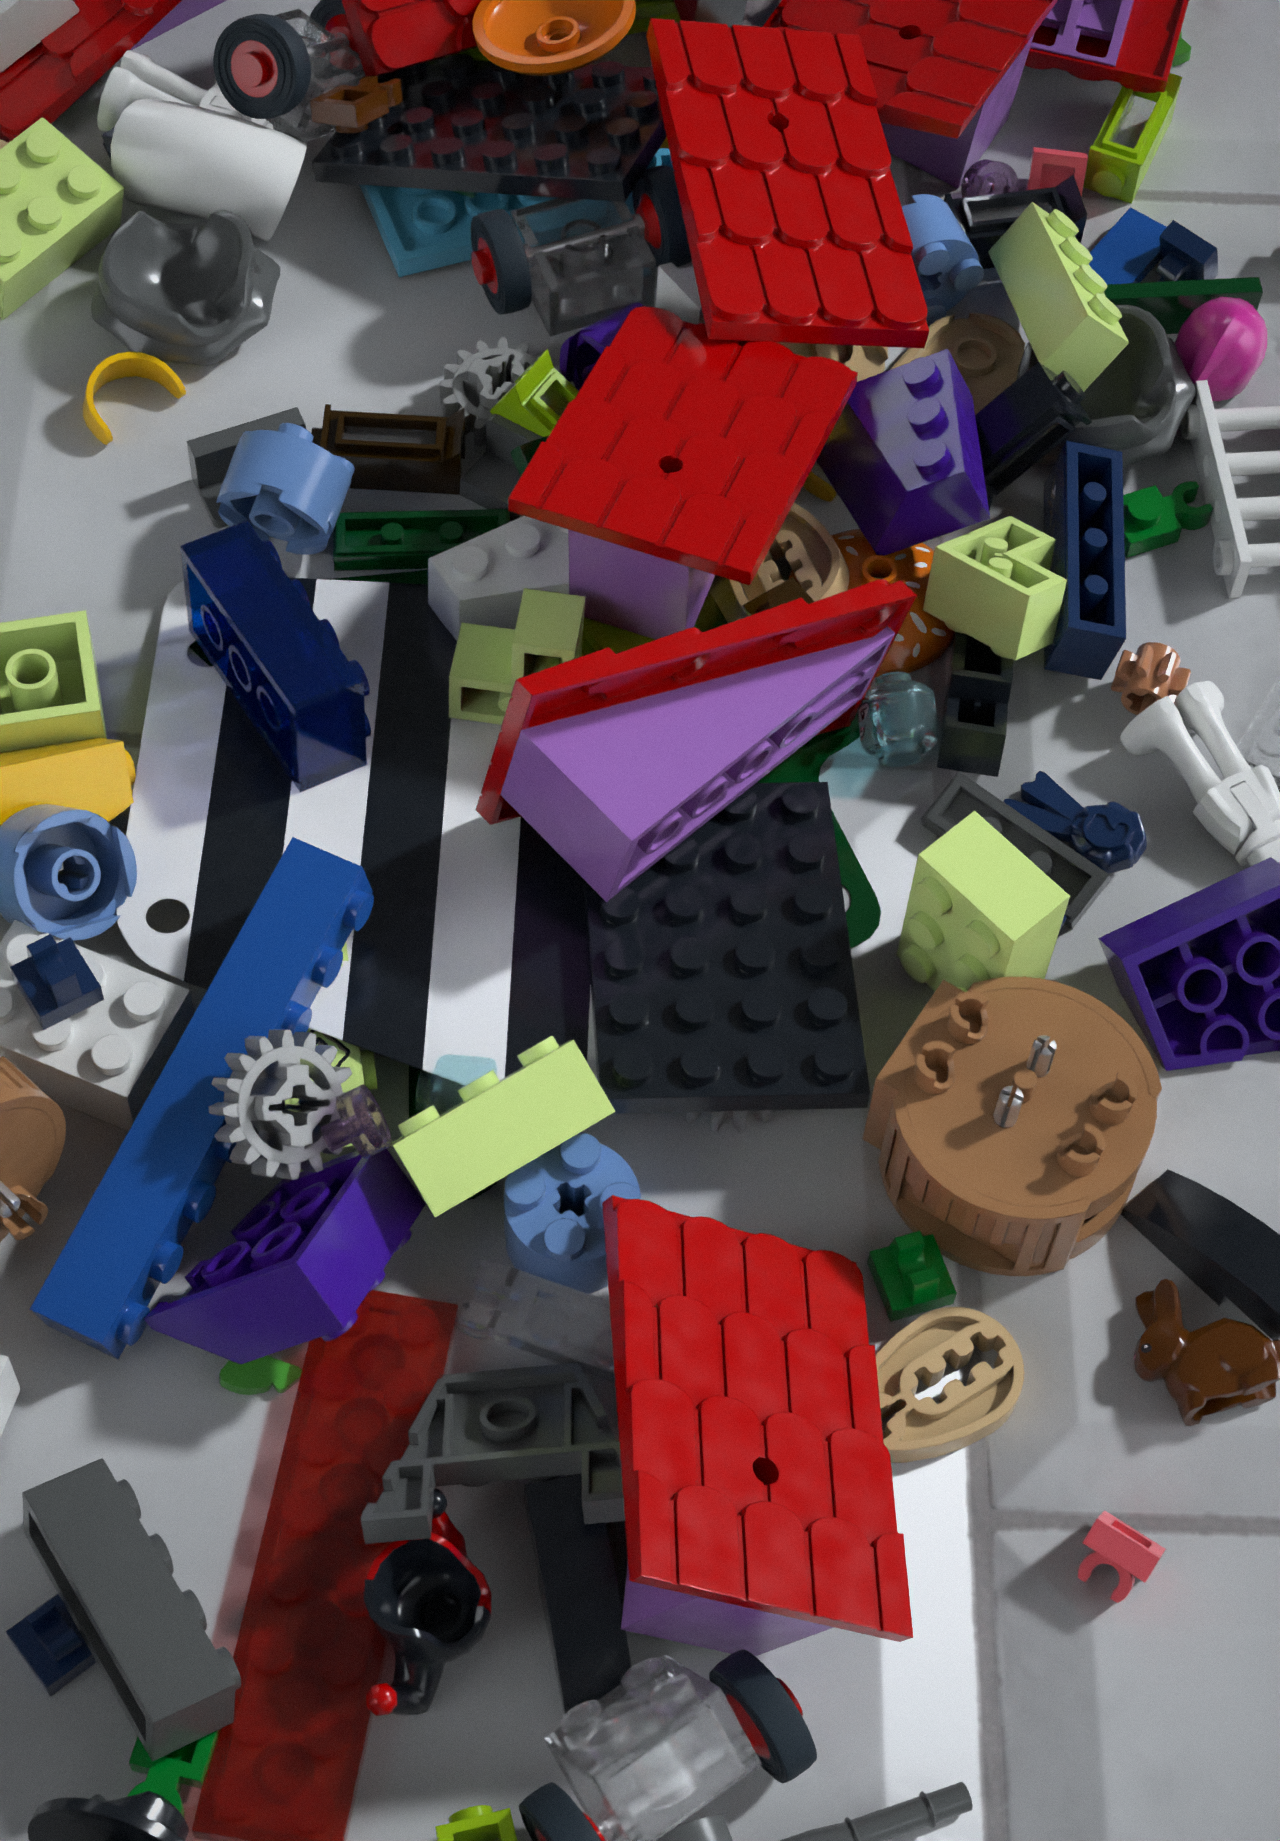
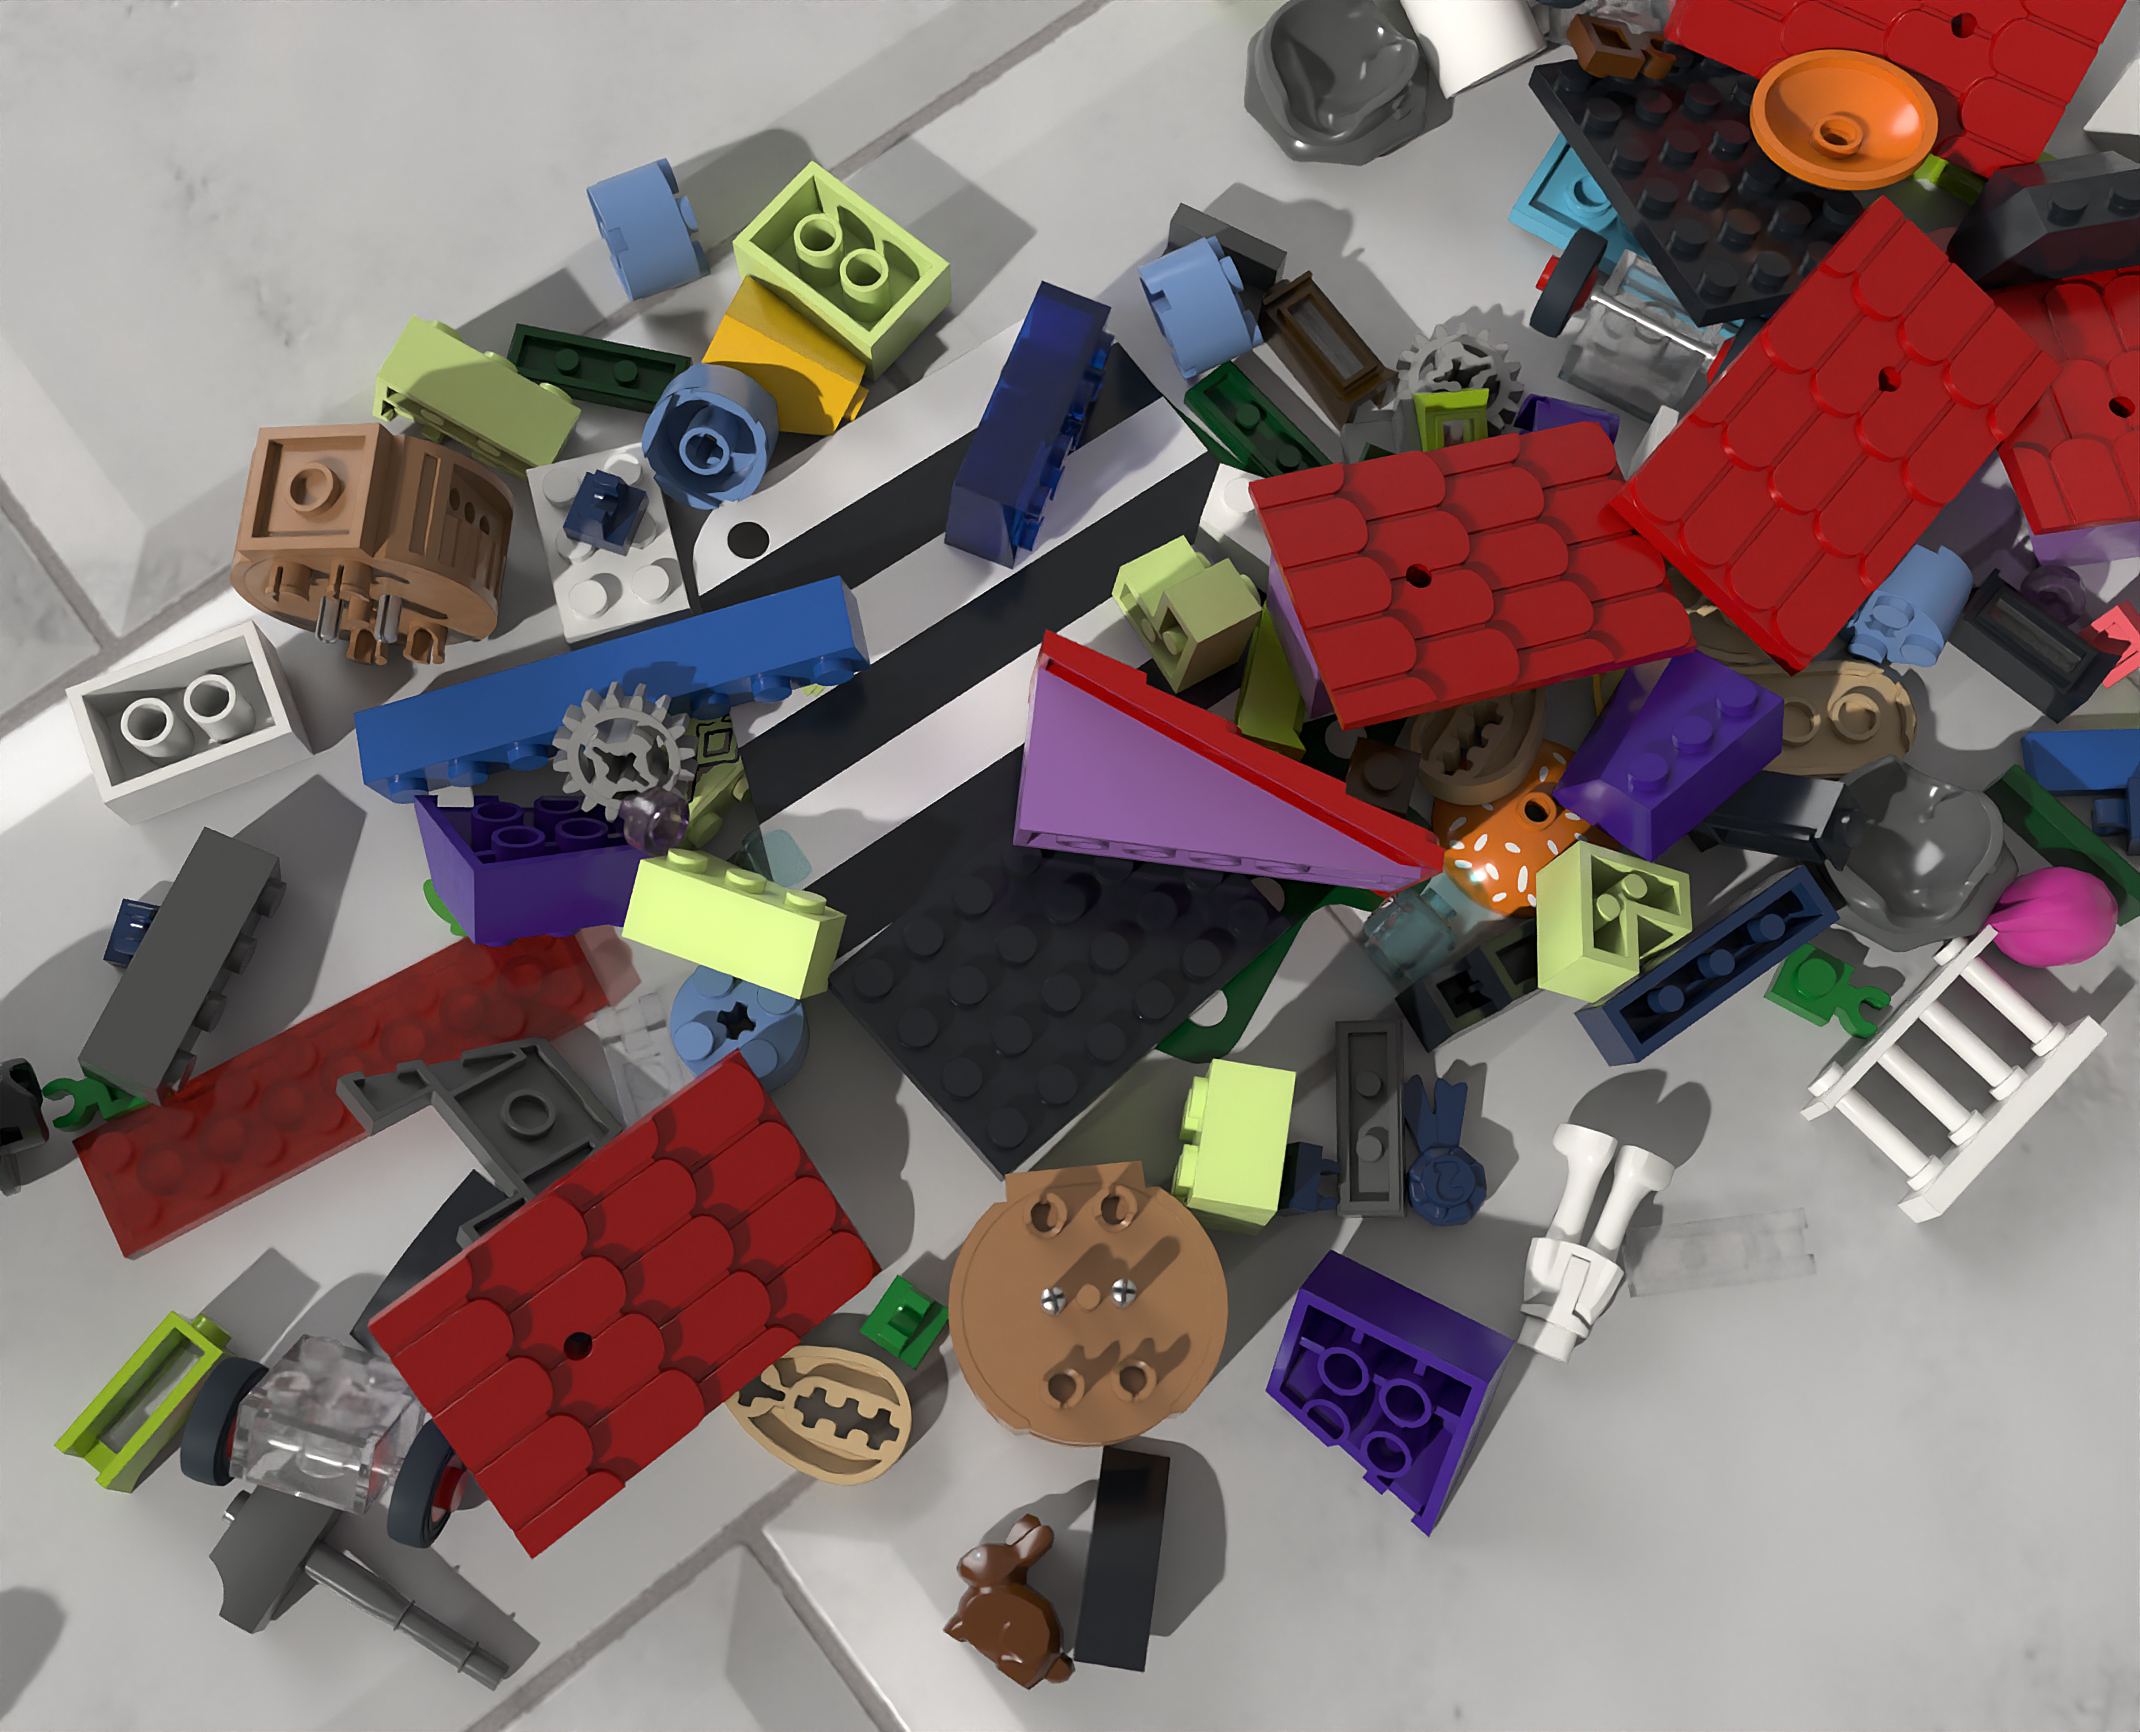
camera: 50 degrees right, 15 degrees up
(120, 366) = (1210, 93): yellow helmet -> none
(429, 1609) = (337, 1172): black piece -> none
(1058, 295) = (1960, 744): yellowish green brick -> none
(1123, 1549) = (787, 1660): coral tile -> none
(1149, 676) = (1636, 1108): nougat gear -> none

